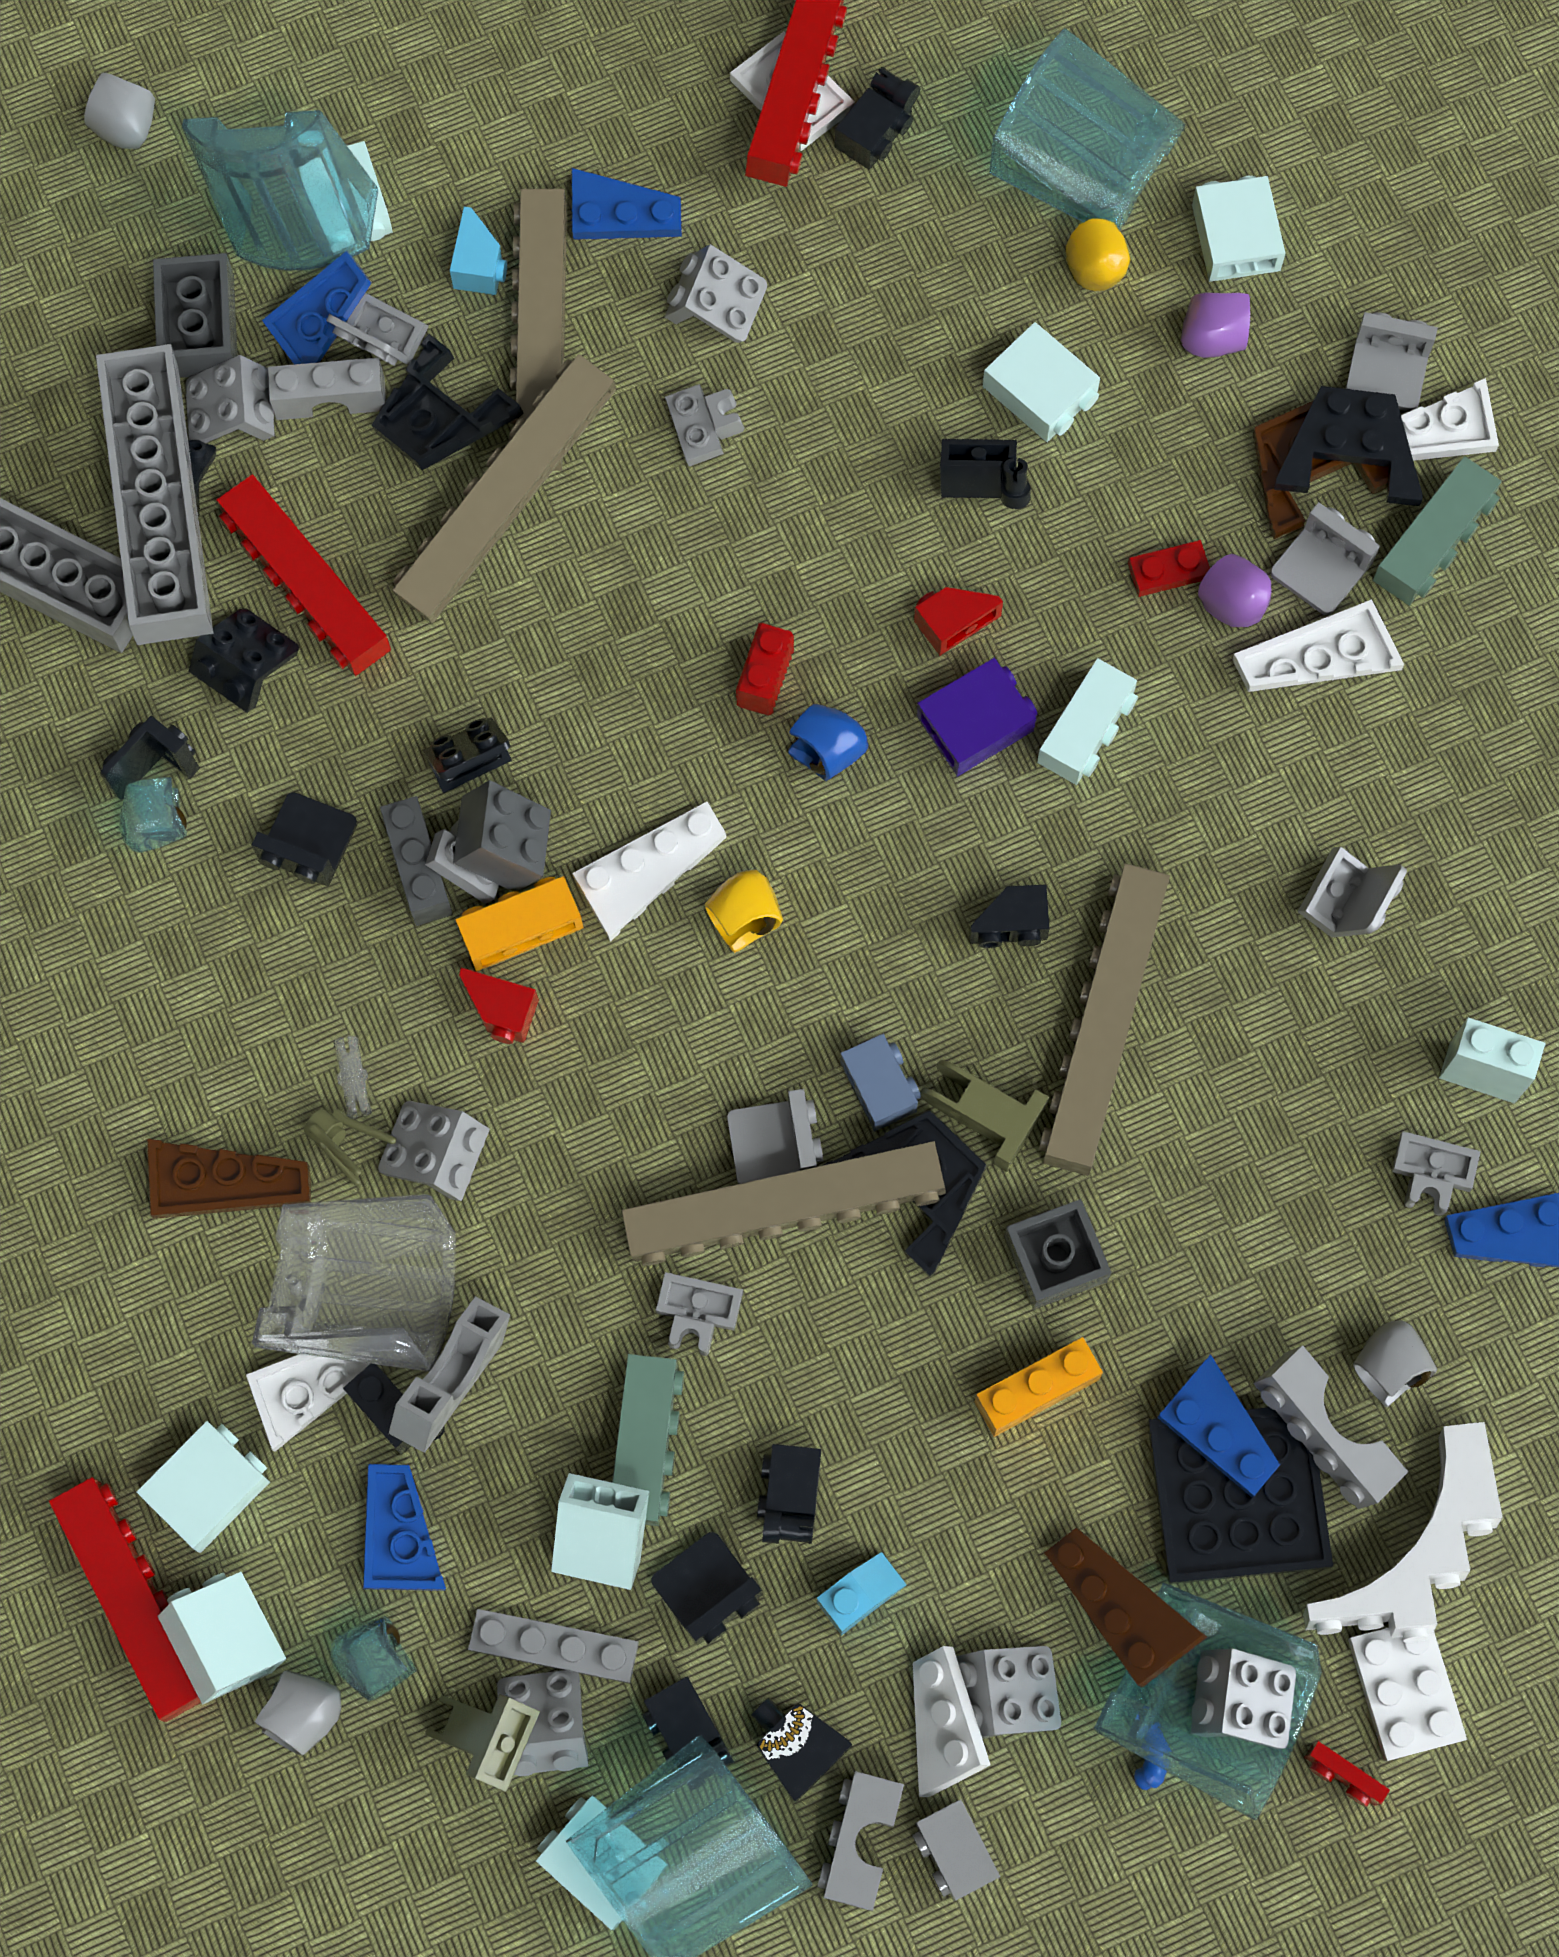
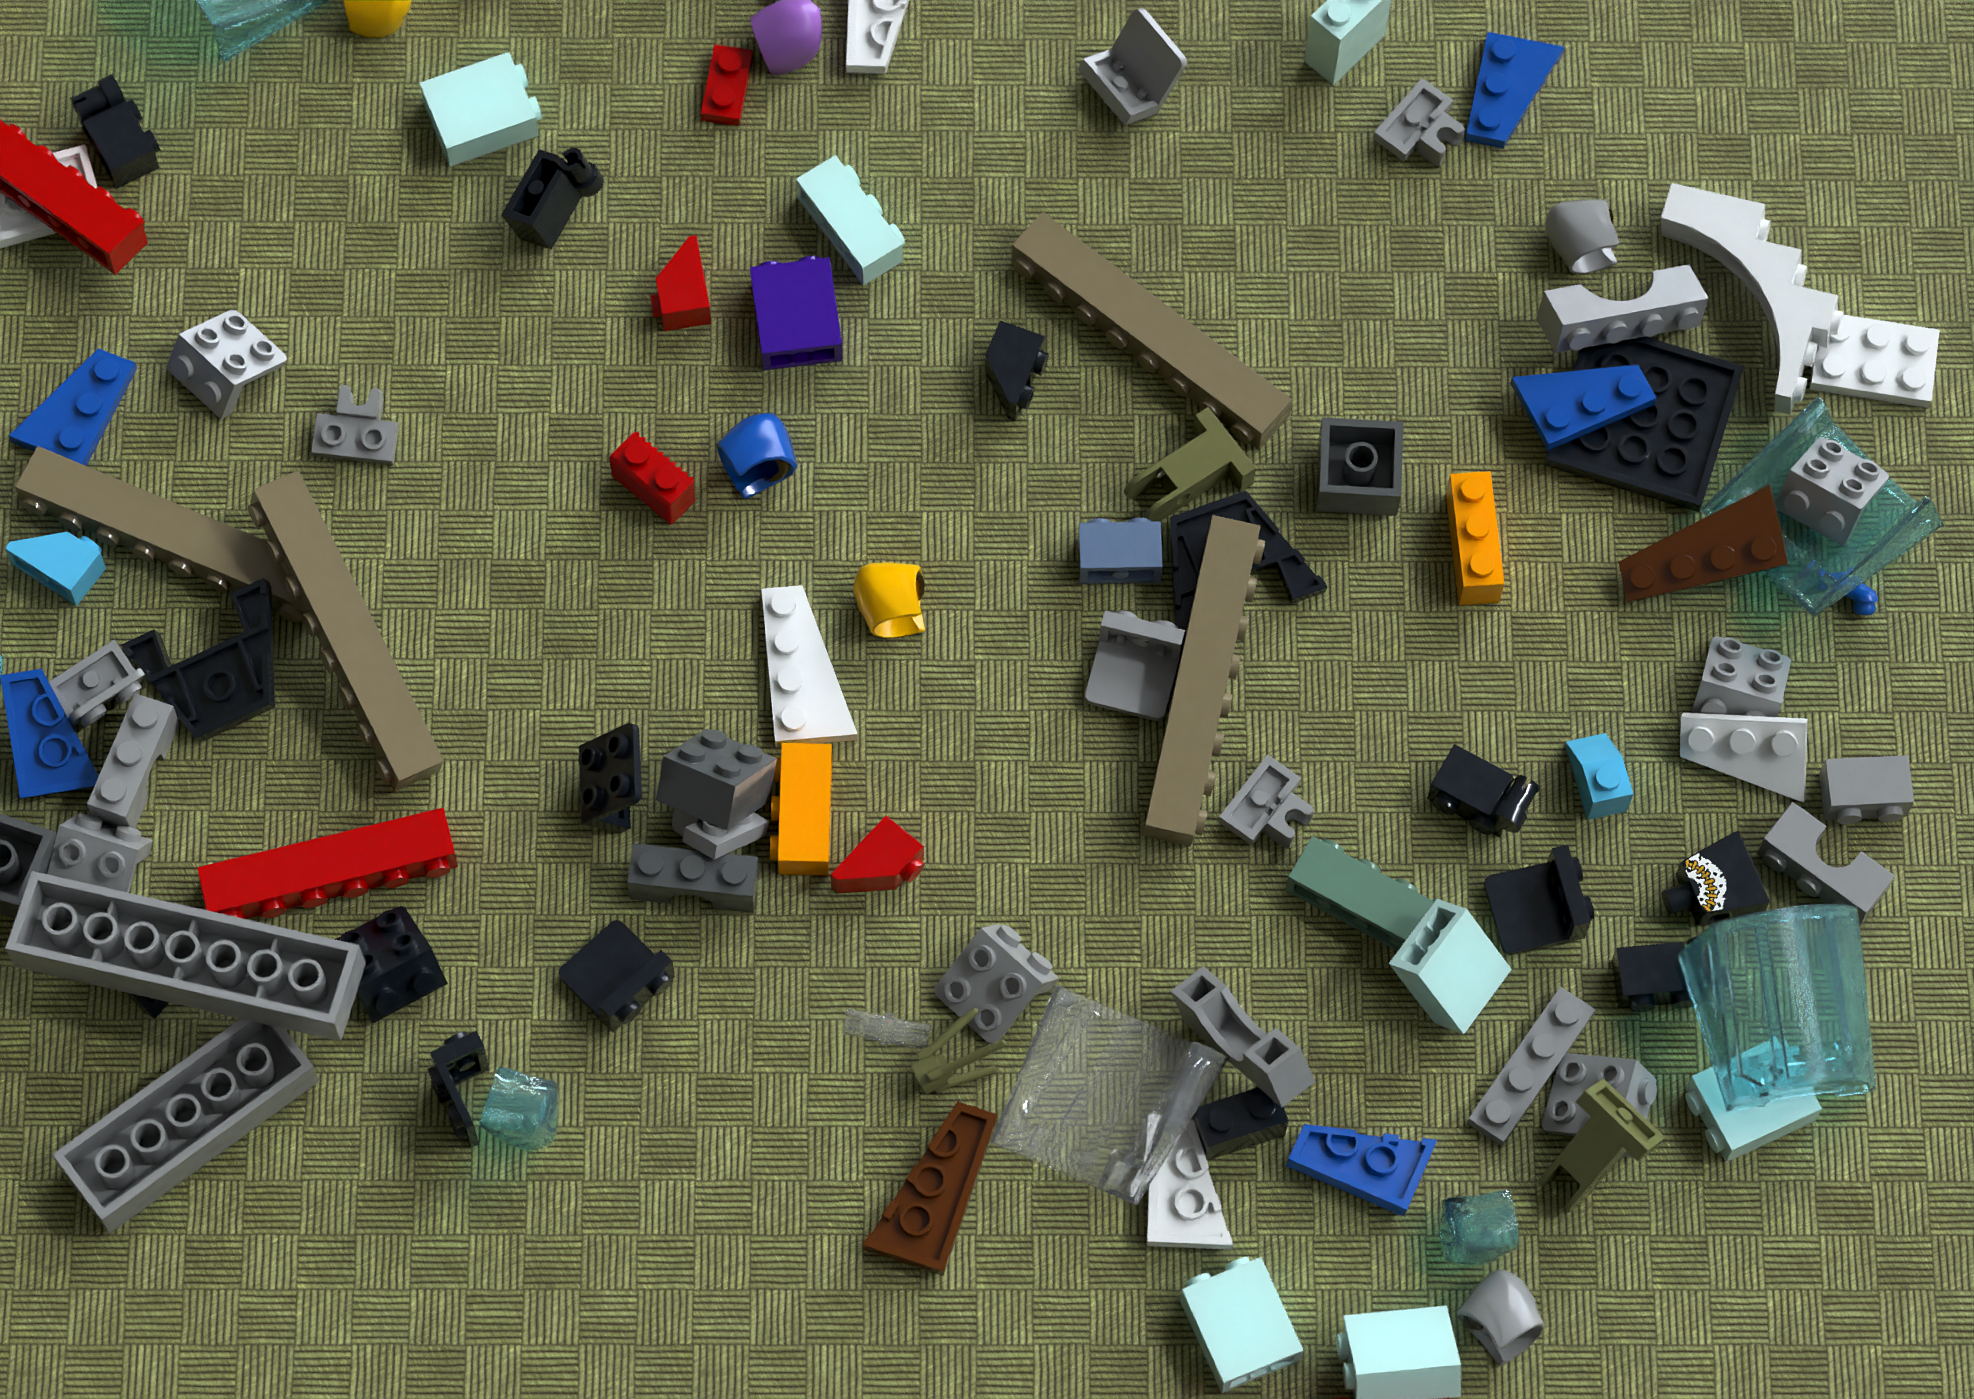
camera: 70 degrees left, 5 degrees down
(1331, 1765) = (1919, 445): red plate -> none

